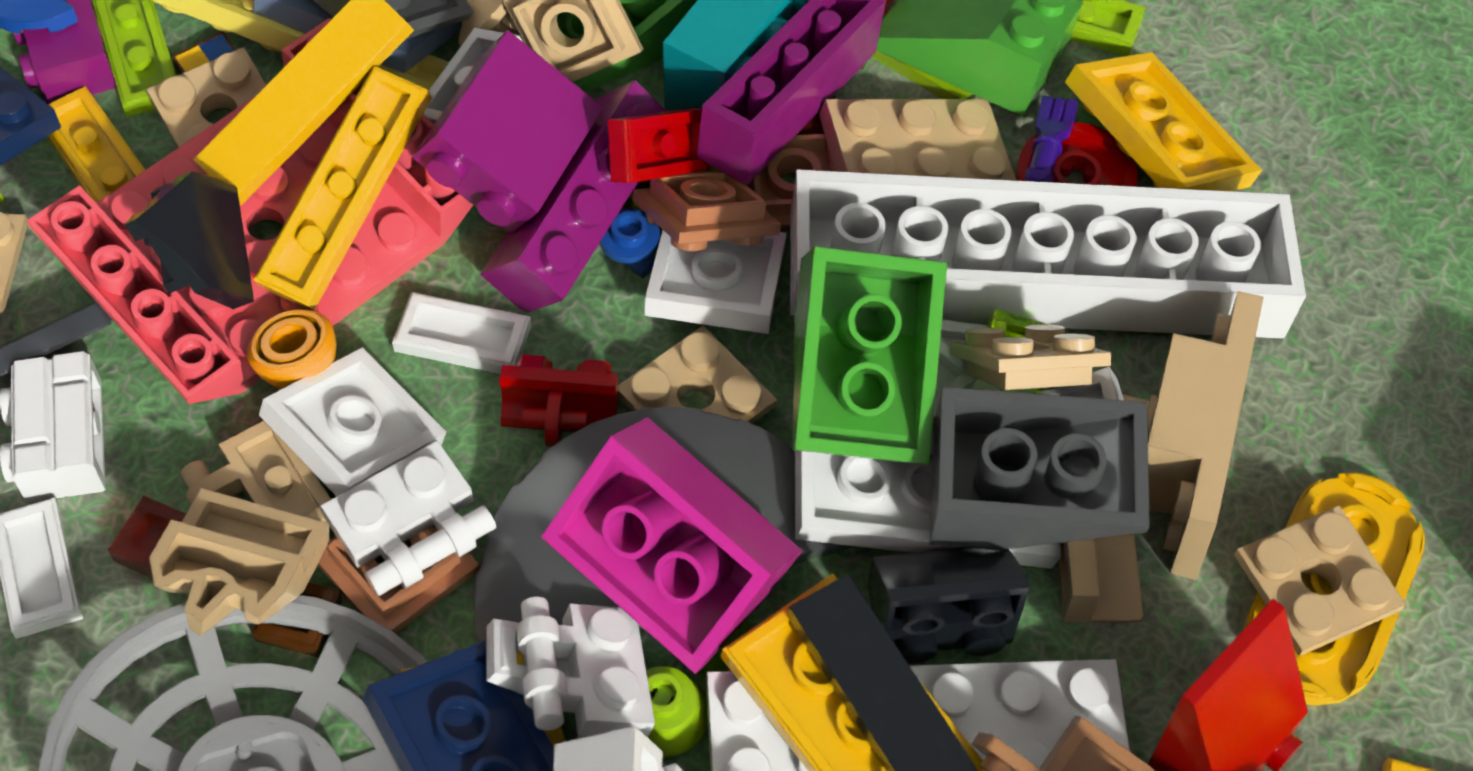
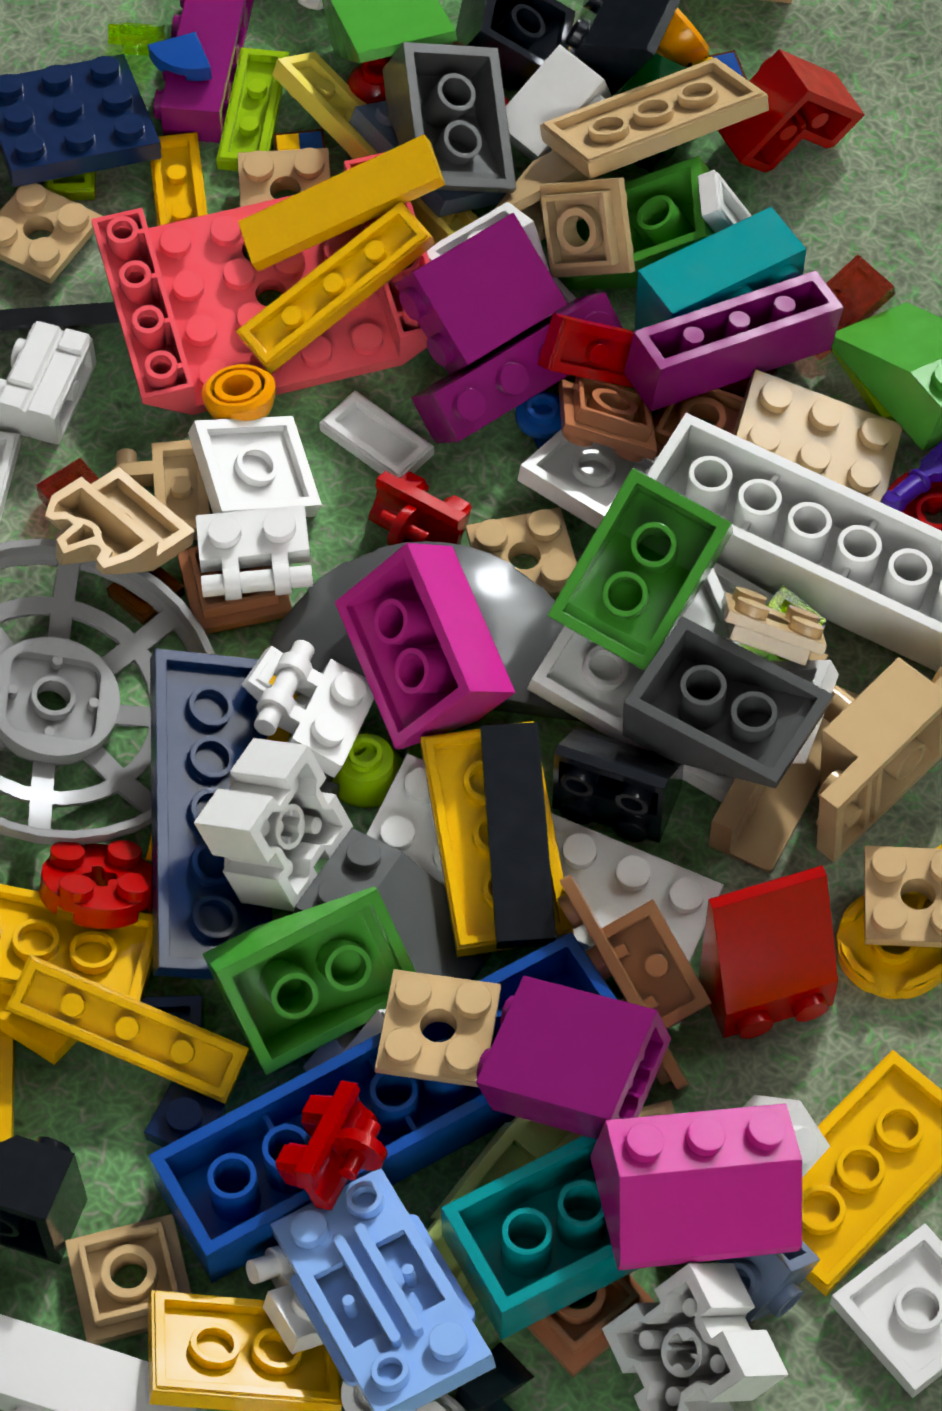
camera: 30 degrees right, 0 degrees up
(198, 238) = (207, 282): black slope -> none

